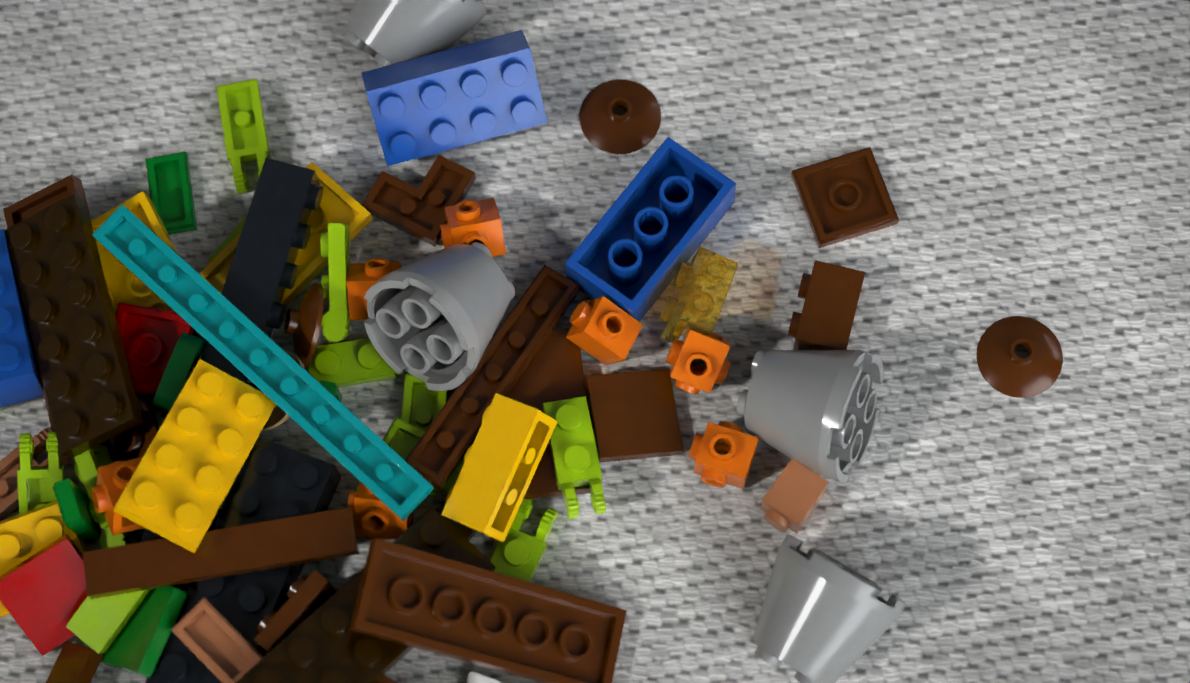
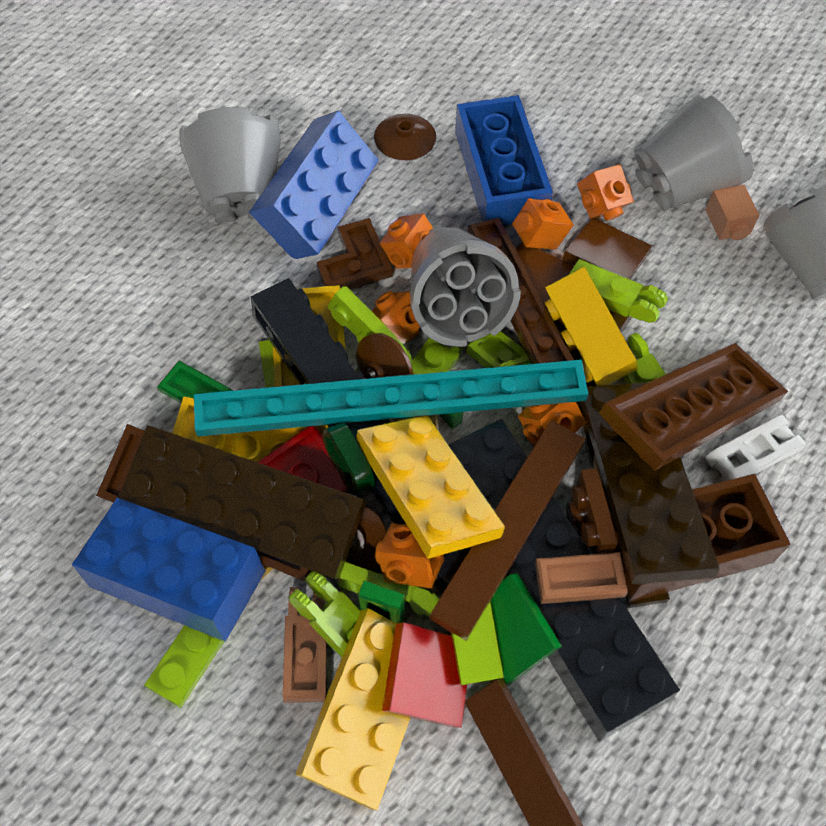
camera: 55 degrees left, 10 degrees down
(243, 128) = (205, 317): lime hinge -> none
(700, 294) = (567, 166): clear yellow bracket -> none
(728, 468) = (679, 223): orange brick -> none
(828, 308) = (627, 120): reddish brown brick -> none
(844, 197) = (562, 77): reddish brown tile -> none
(1018, 375) = (728, 73): reddish brown dish -> none

